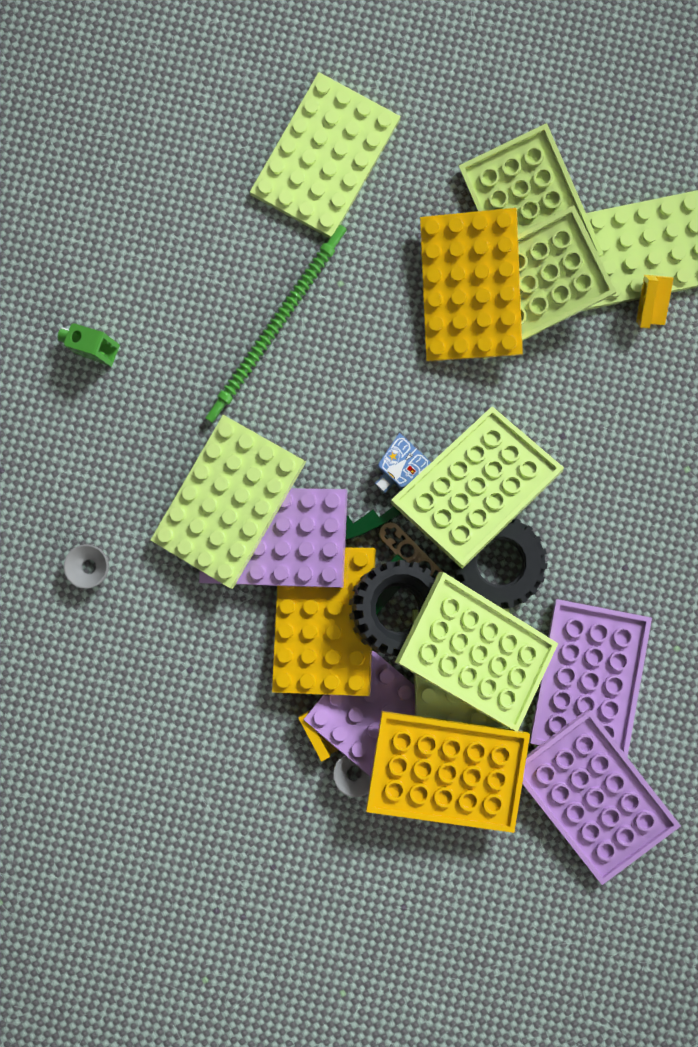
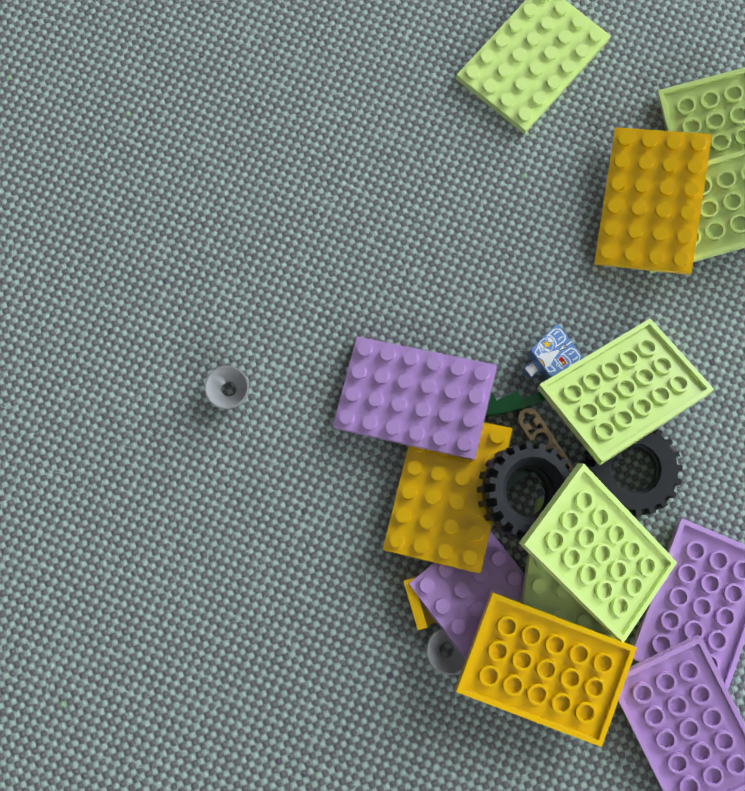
camera: 10 degrees right, 5 degrees down
(89, 343) = (277, 179): bright green torso -> none
(228, 501) = (378, 353): yellowish green plate -> none
(327, 250) = (518, 142): bright green hose -> none

